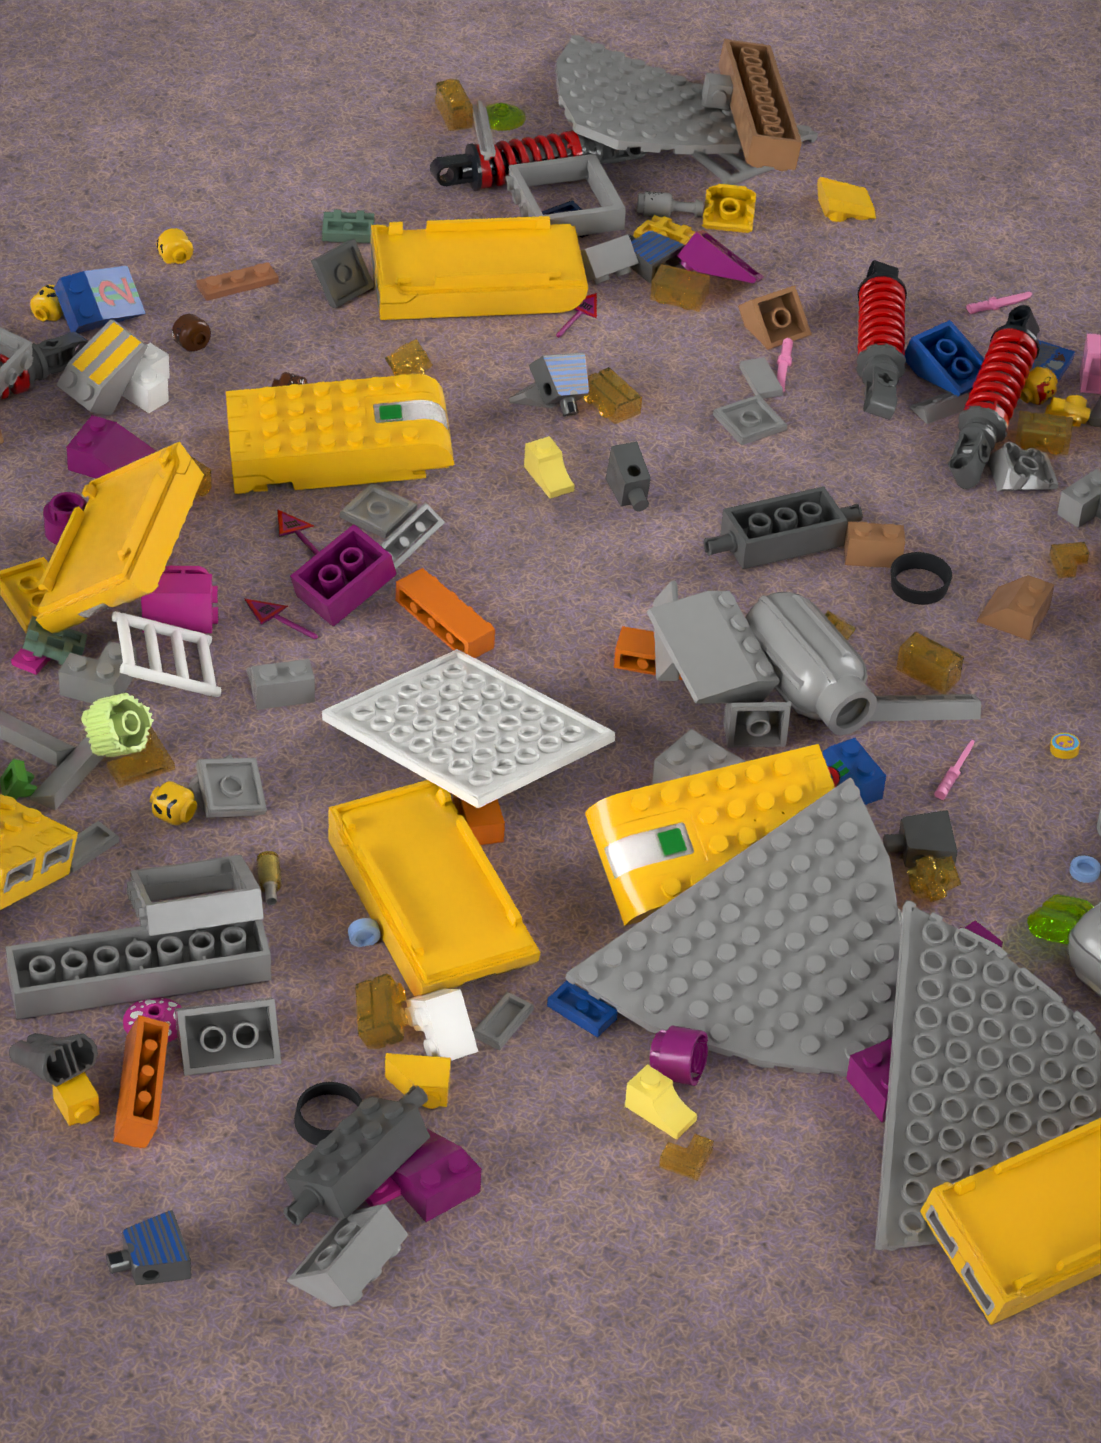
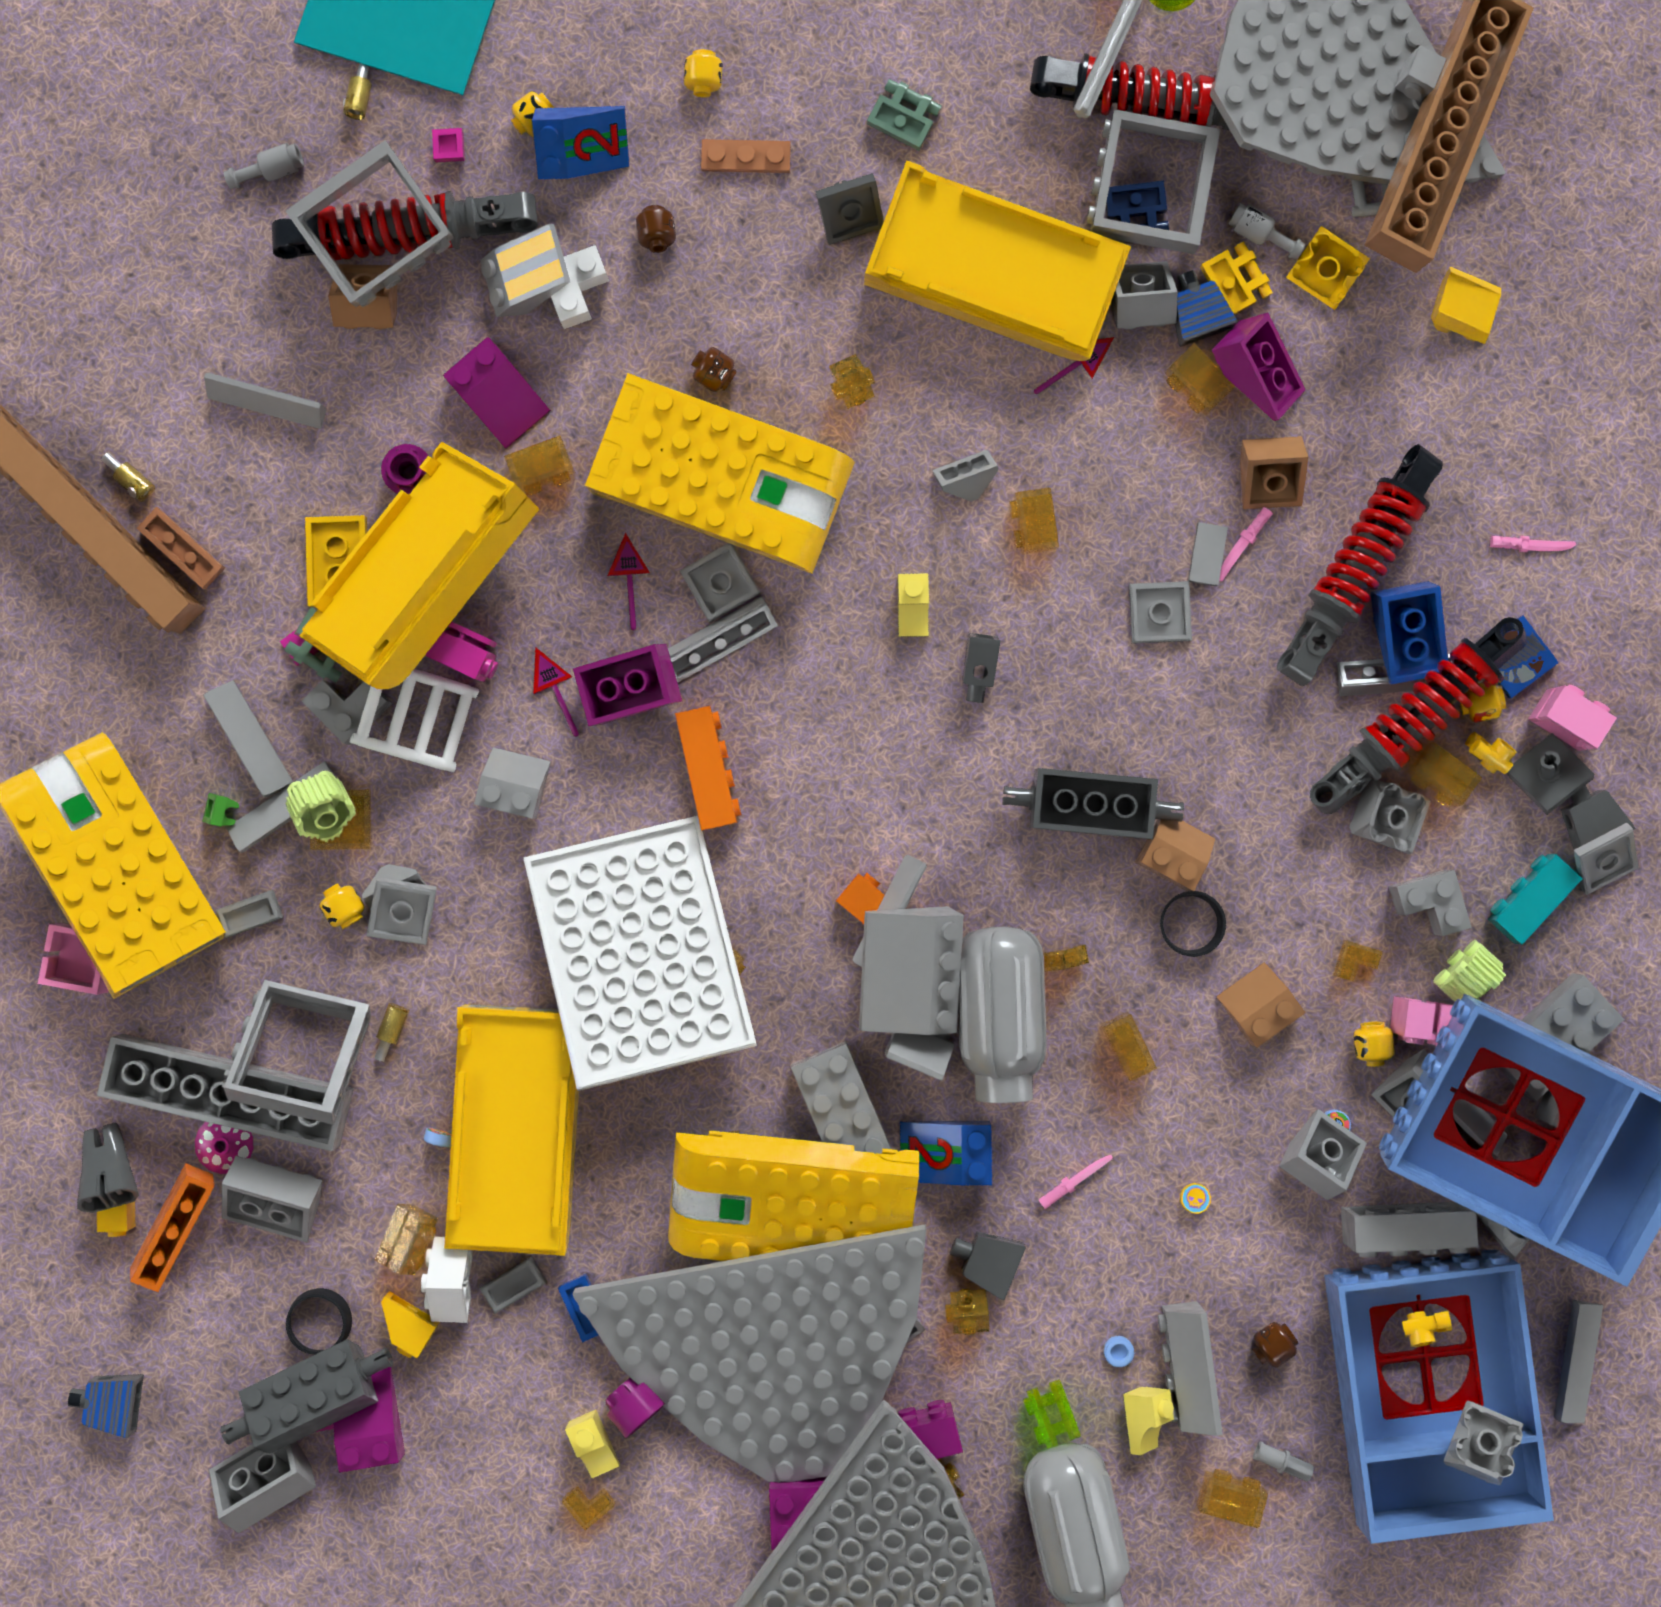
camera: 30 degrees right, 45 degrees up
(561, 380) = (990, 486): dark grey torso -> none
(927, 707) = (1093, 1088): light grey slope -> none

